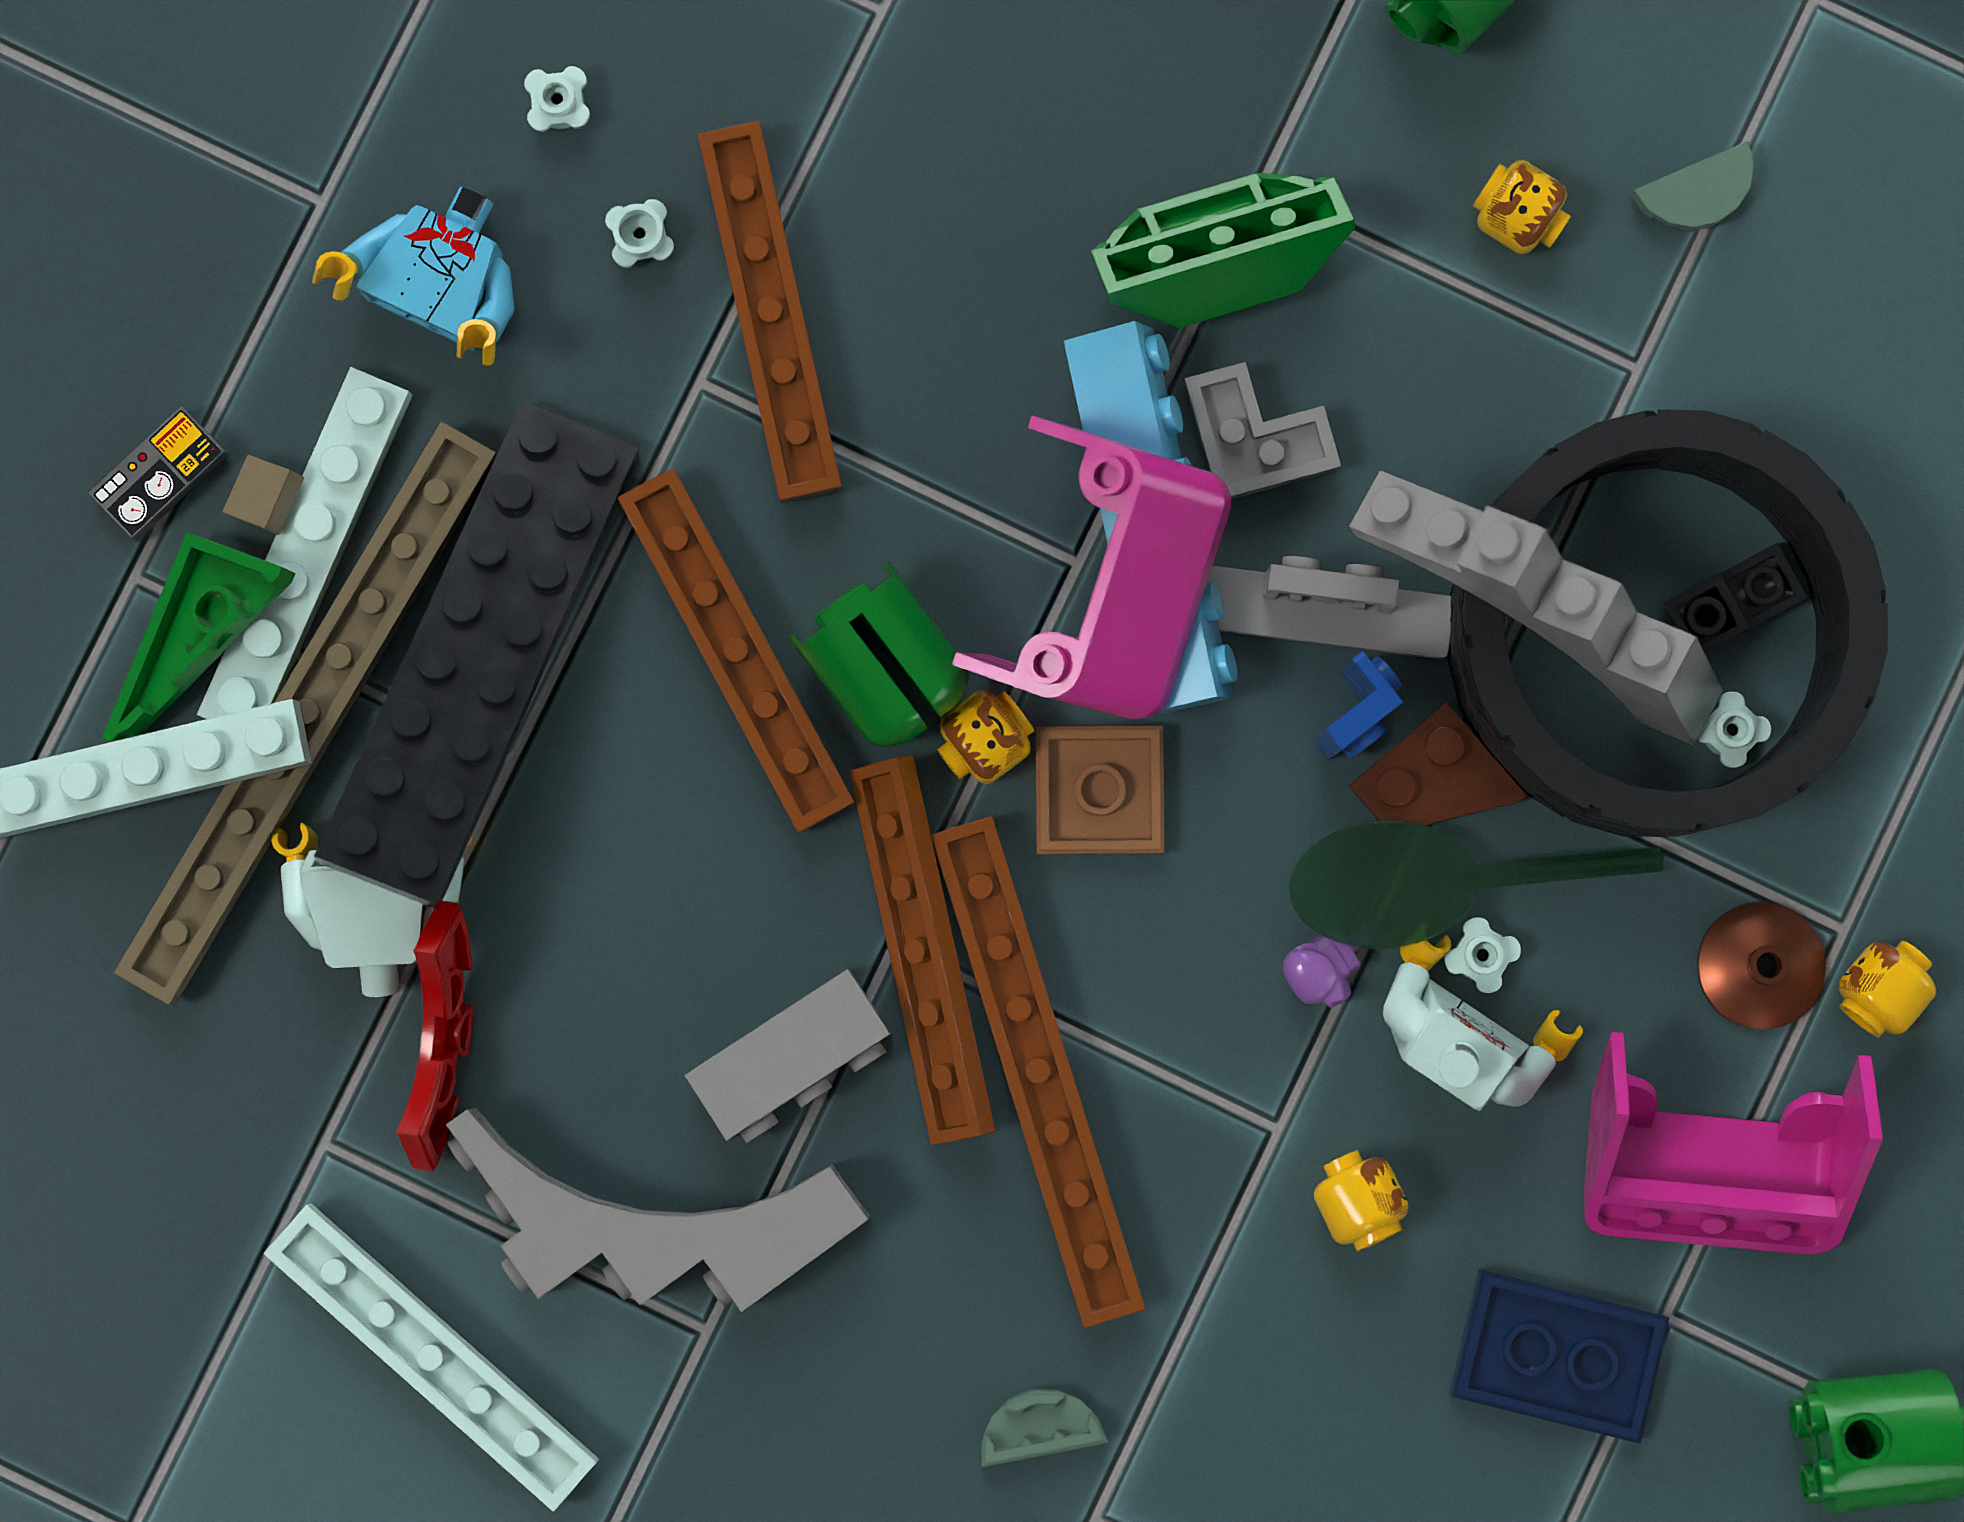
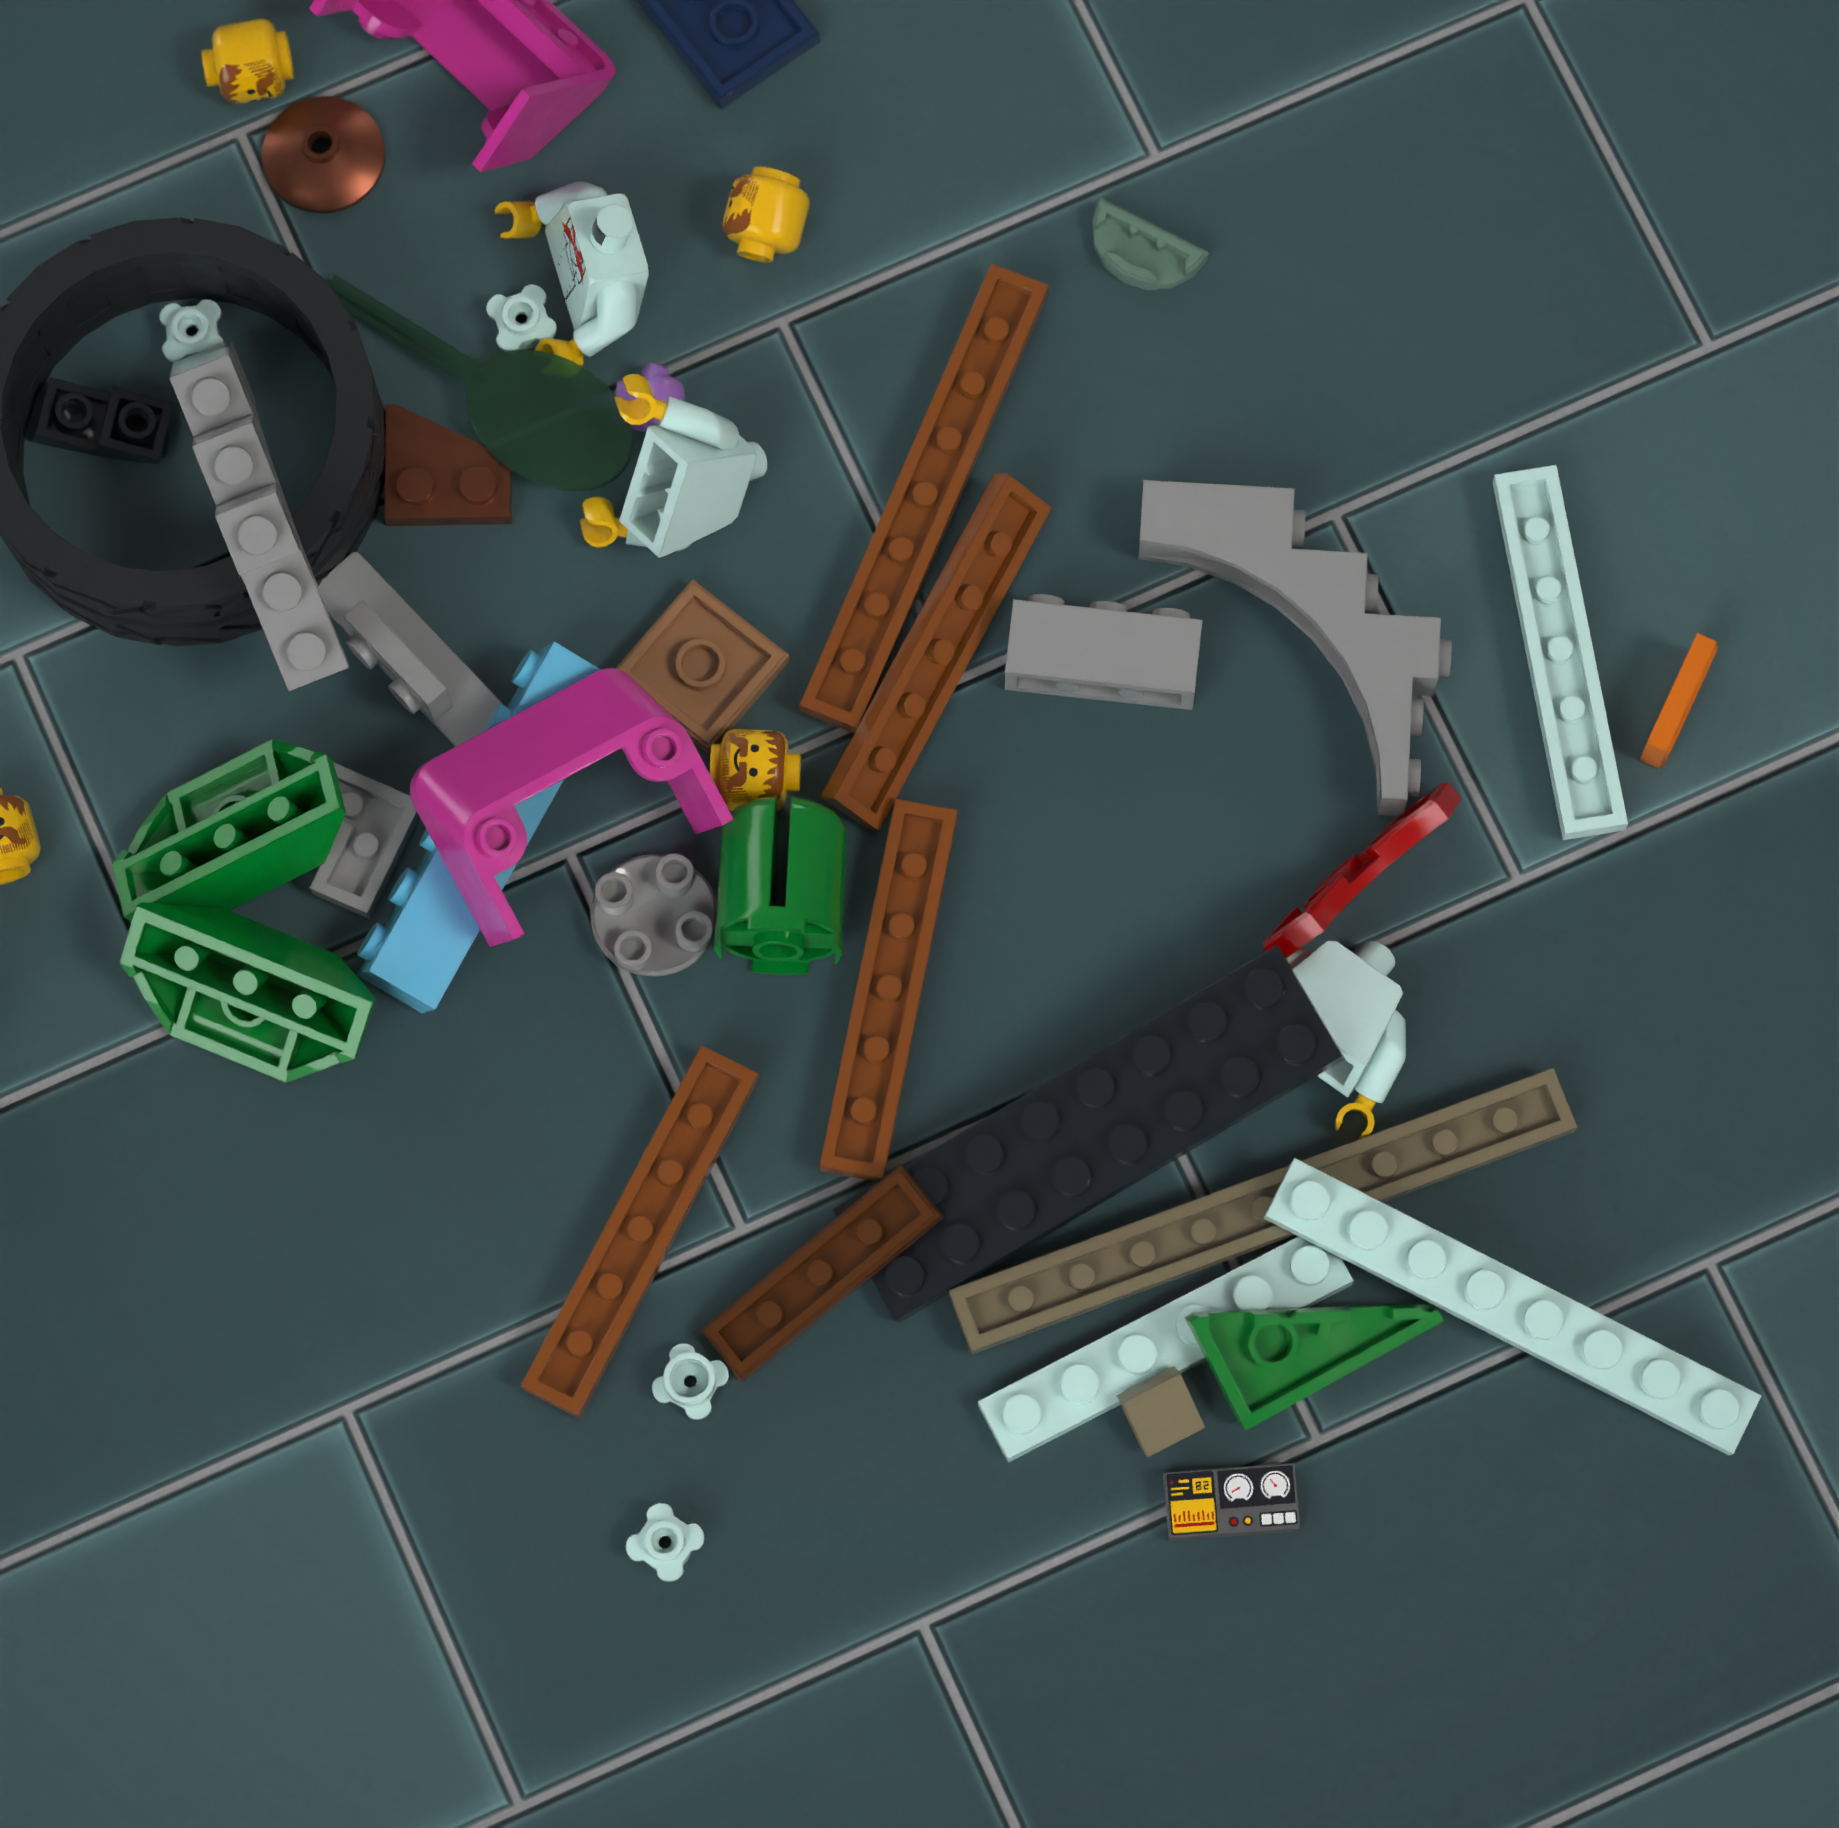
camera: 135 degrees left, 10 degrees down
(301, 1391) = (1679, 701): none -> orange tile
(432, 273) = (879, 1470): medium azure torso -> none
(601, 388) = (822, 1273): none -> reddish brown tile
(967, 562) = (654, 914): none -> light grey dish
(1232, 916) = (685, 477): none -> light aqua torso
(1341, 346) = (234, 831): none -> green wedge
(1361, 726) = (456, 547): blue bracket -> none

